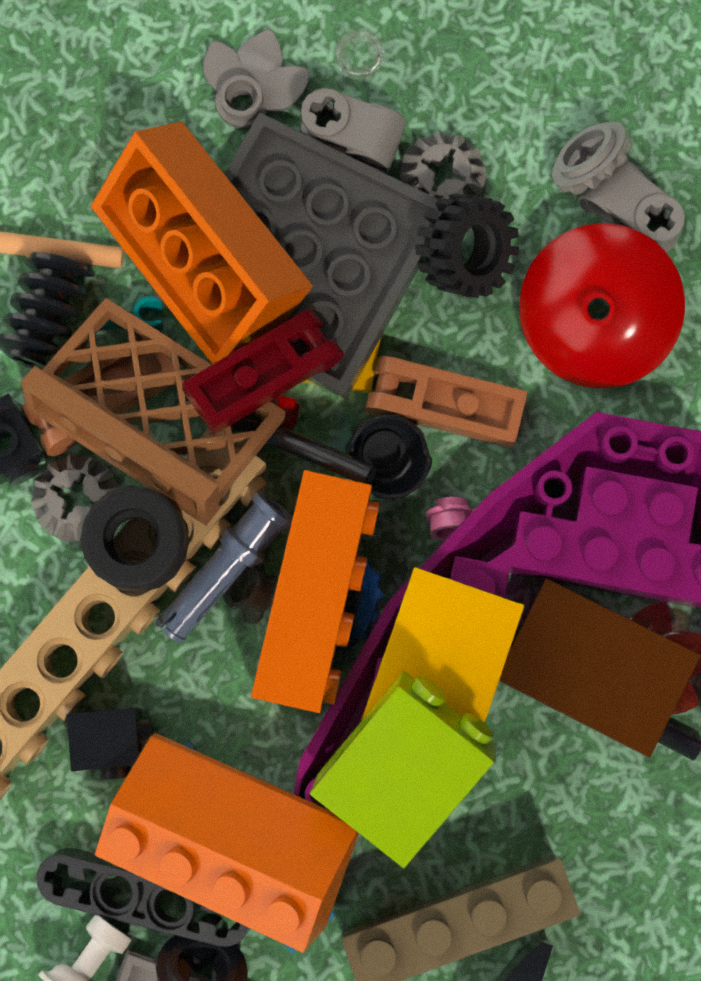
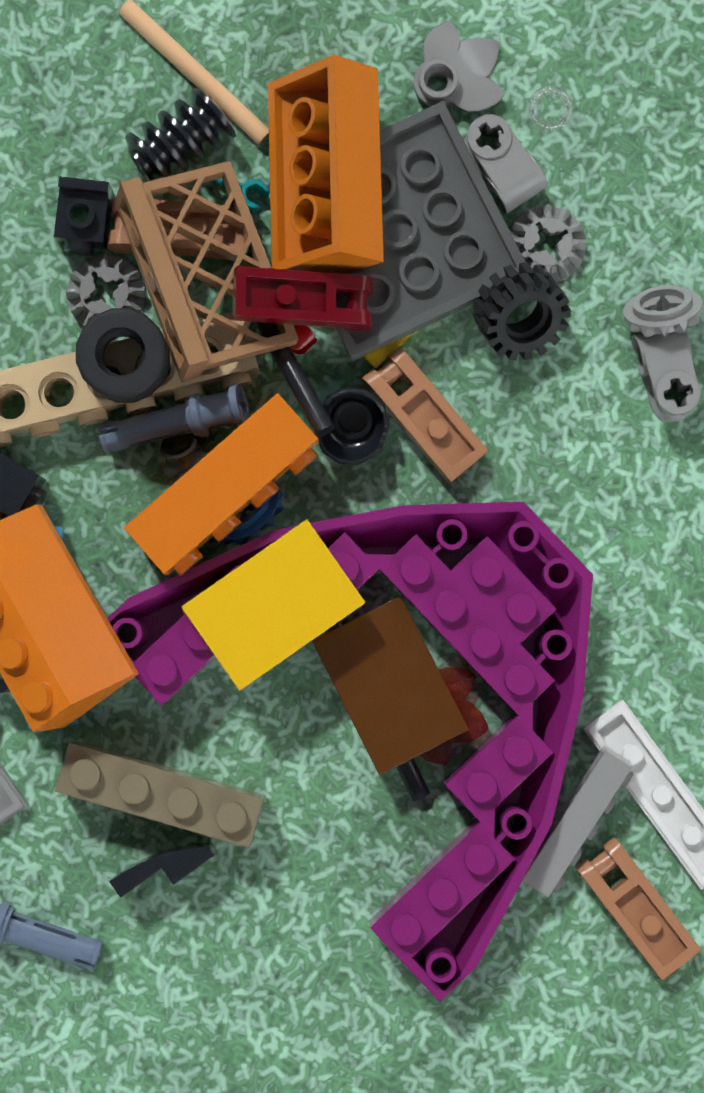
camera: 30 degrees right, 5 degrees up
(405, 767) = (195, 655): lime brick -> none
(447, 516) = (364, 499): bright pink plate -> none
(635, 281) = (622, 421): red dish -> none

